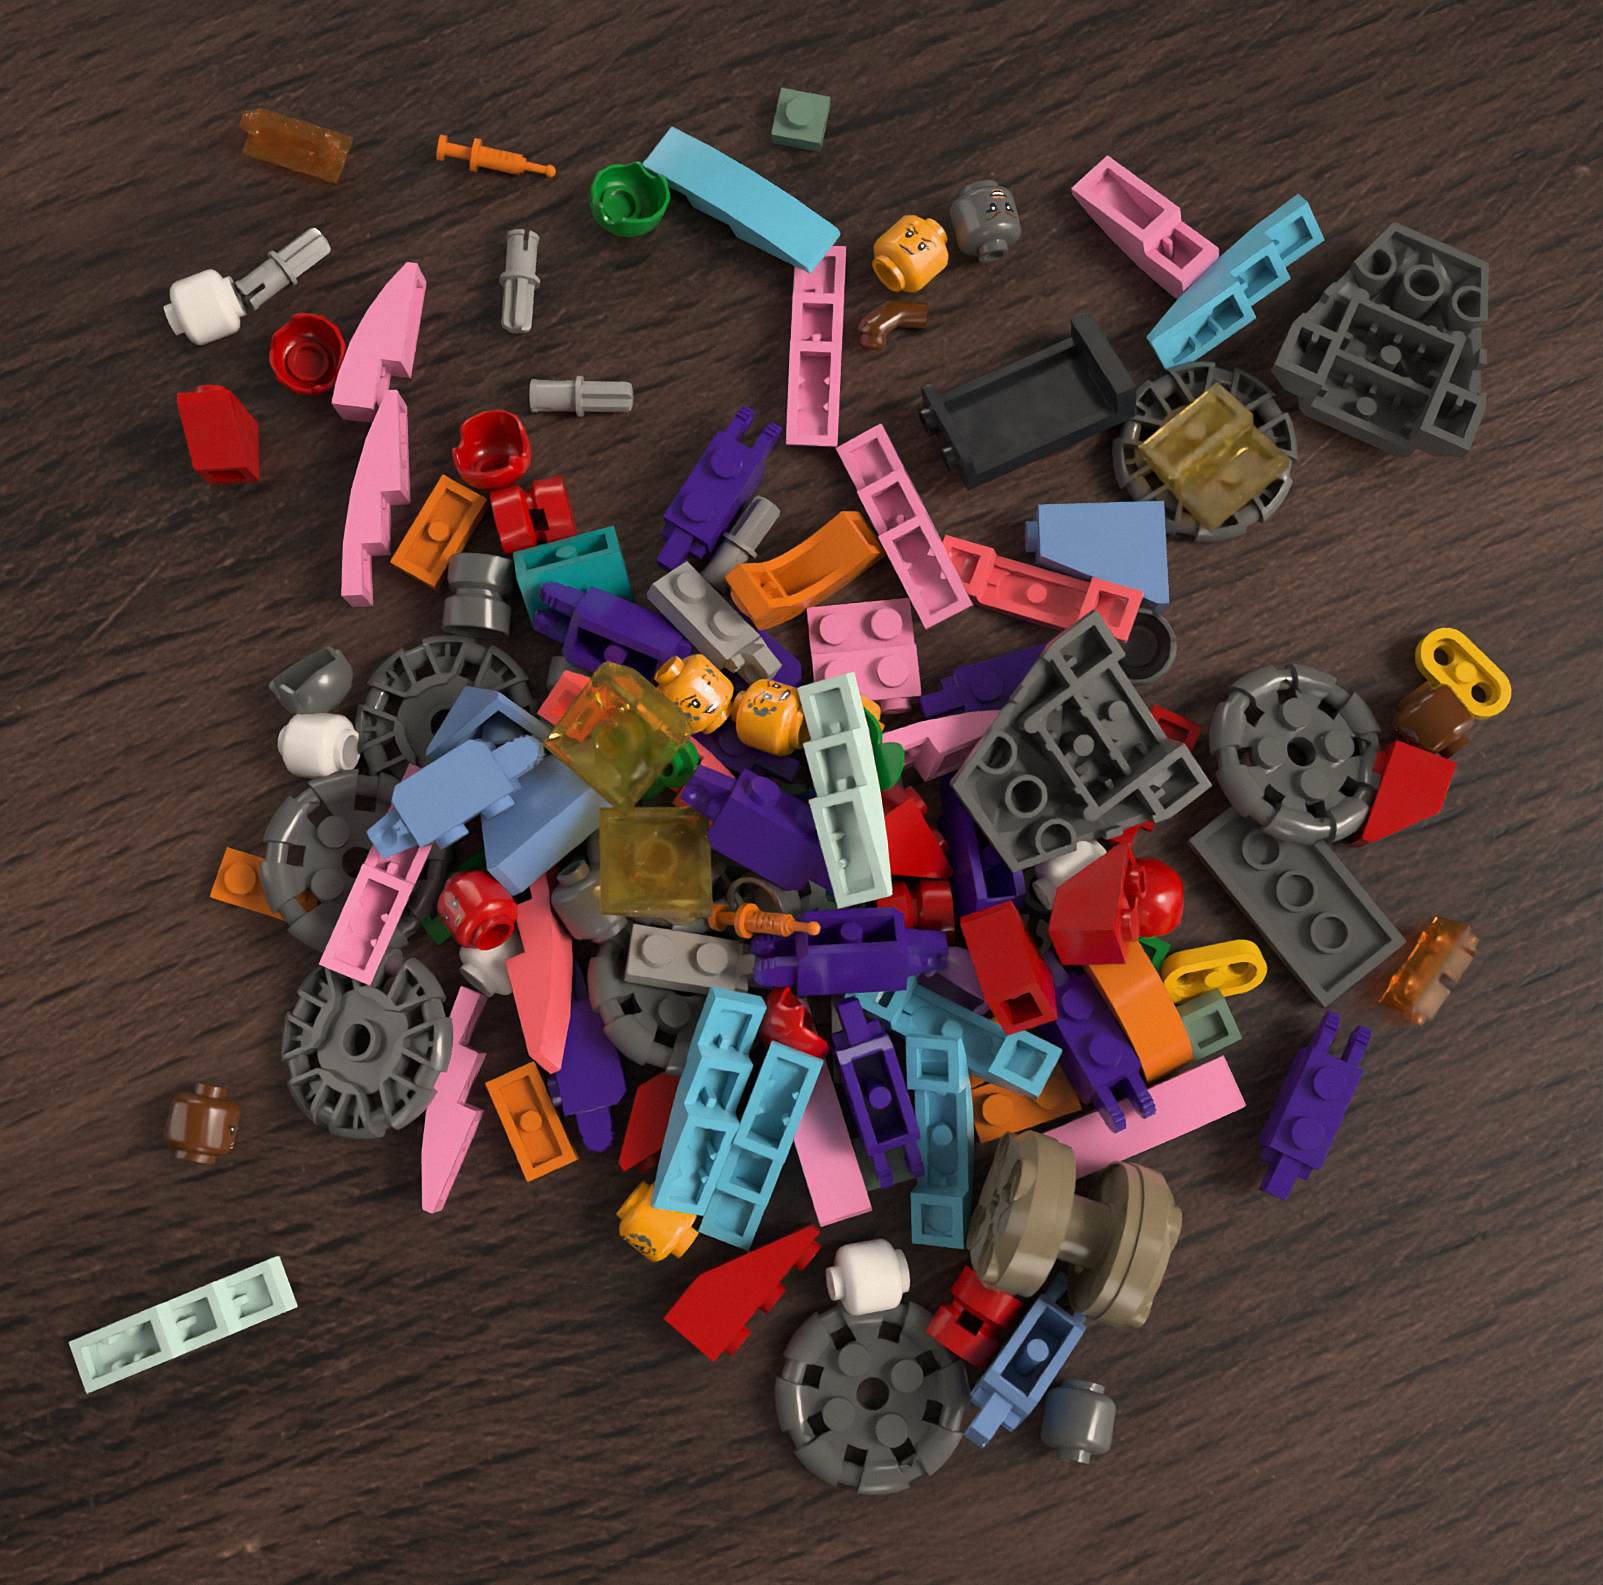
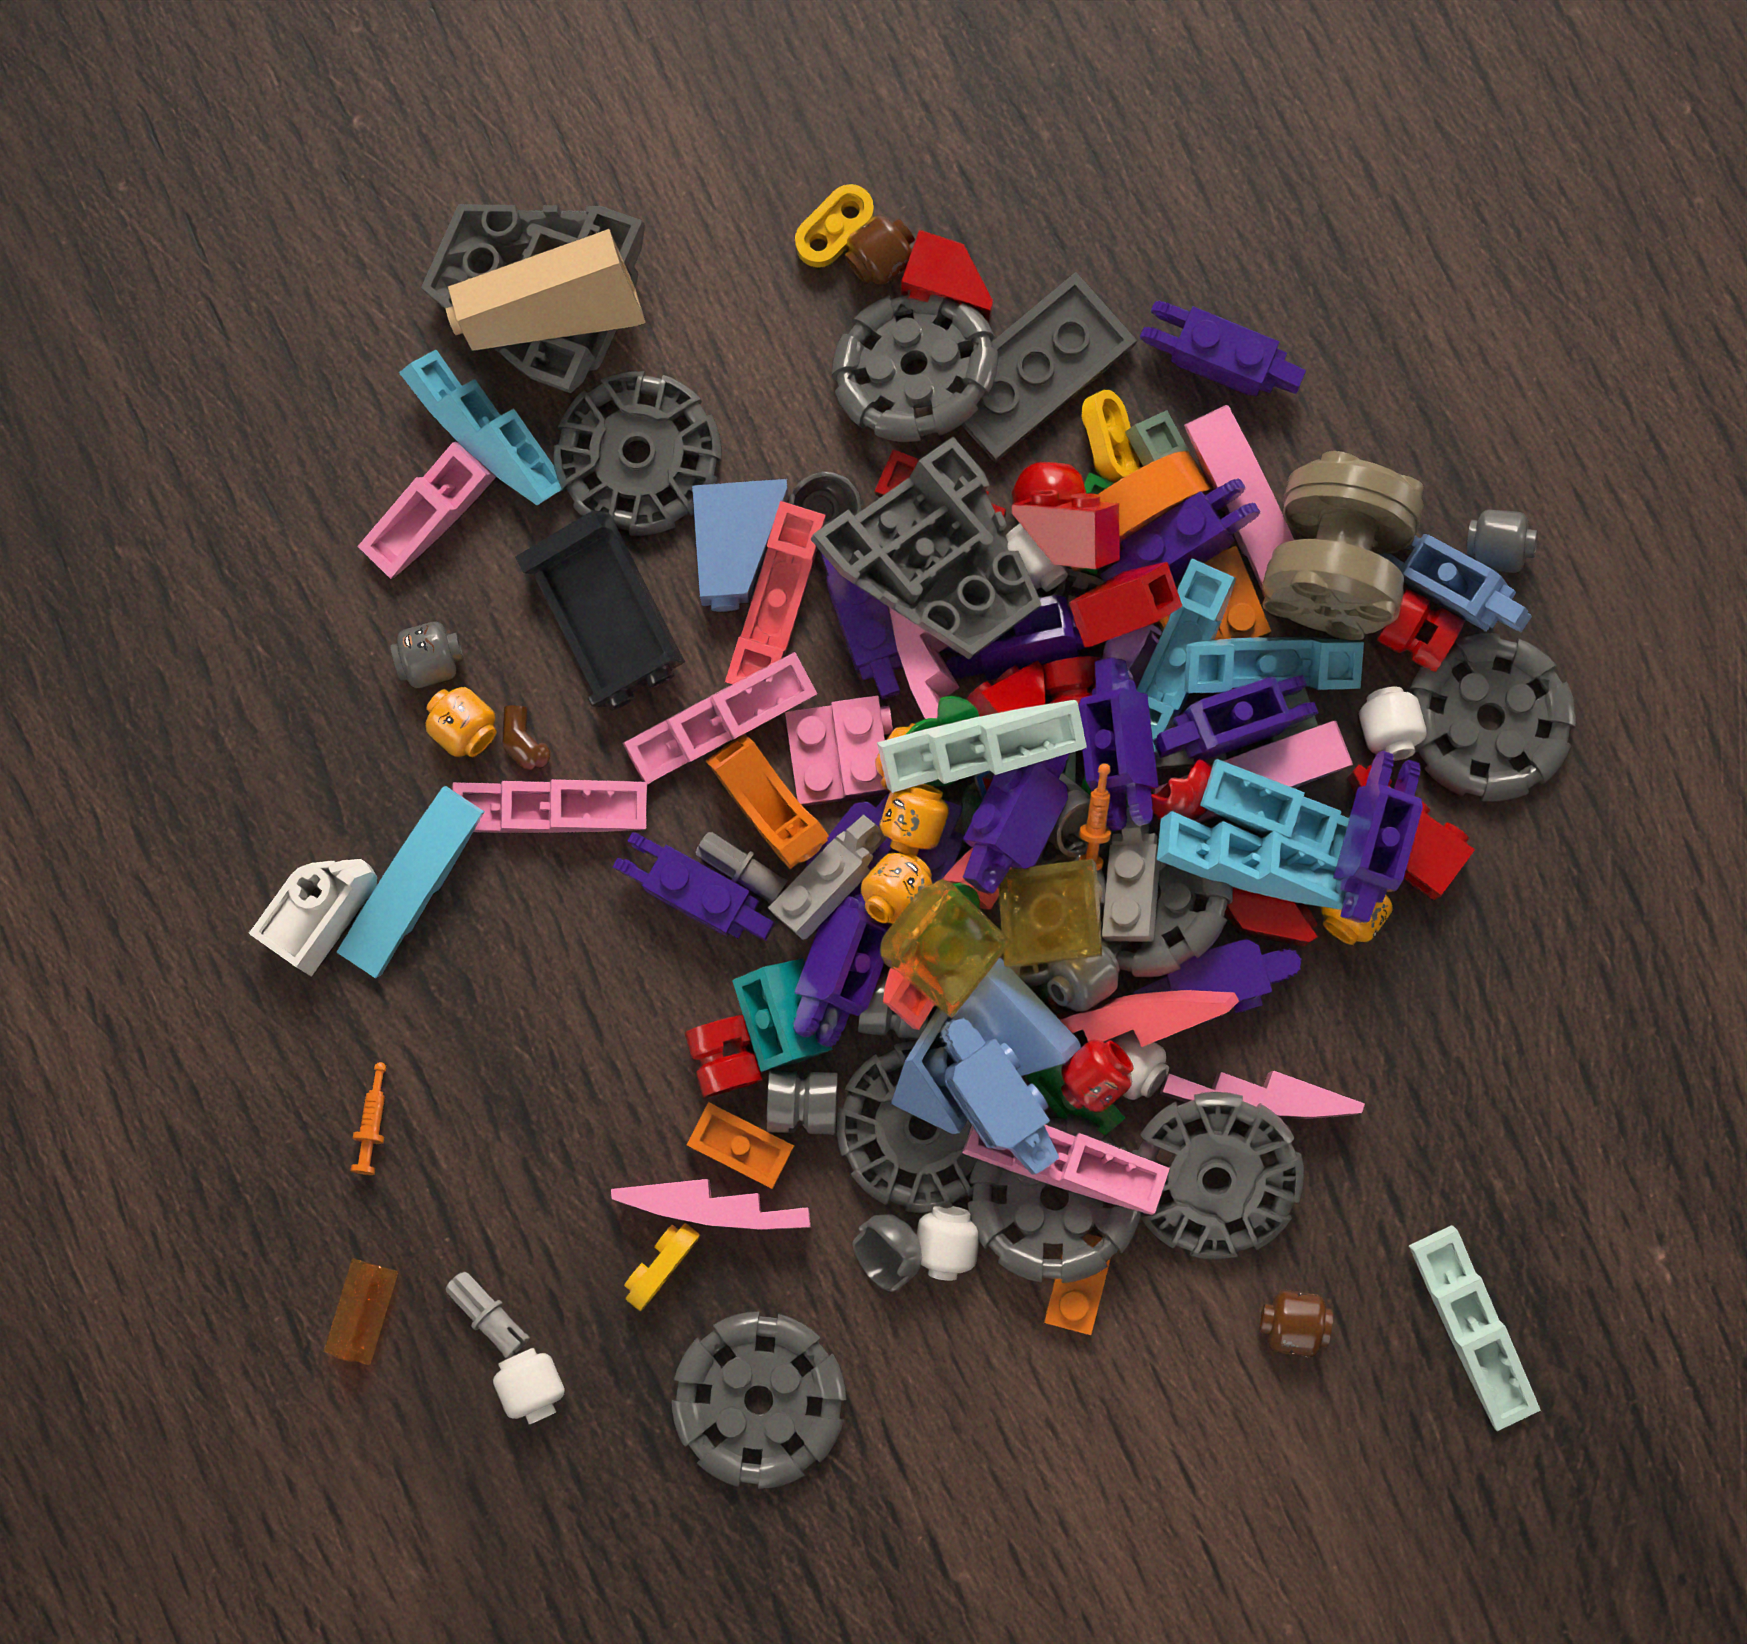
camera: 95 degrees left, 0 degrees up
(141, 539) = (754, 1430): none -> dark grey plate
(220, 435) = (659, 1354): red slope -> none
(304, 430) = (647, 1281): none -> yellow plate
(307, 354) = (575, 1279): red hair -> none
(381, 346) = (565, 1212): bright pink slope -> none
(492, 450) = (662, 1099): red hair -> none
(519, 281) = (494, 1087): light grey axle -> none
(532, 1121) = (1276, 1026): orange plate -> none
(580, 396) = (603, 1022): light grey axle -> none
(628, 199) = (413, 985): green hair -> none
(711, 99) = (308, 927): none -> white piece
(727, 1246) = (1378, 837): none -> dark purple hinge
(800, 119) = (325, 832): sand green plate -> none
(1213, 457) = (648, 443): clear yellow slope -> none
(1381, 343) = (547, 296): none -> tan slope
(1443, 949) = (1113, 263): clear orange hinge -> none

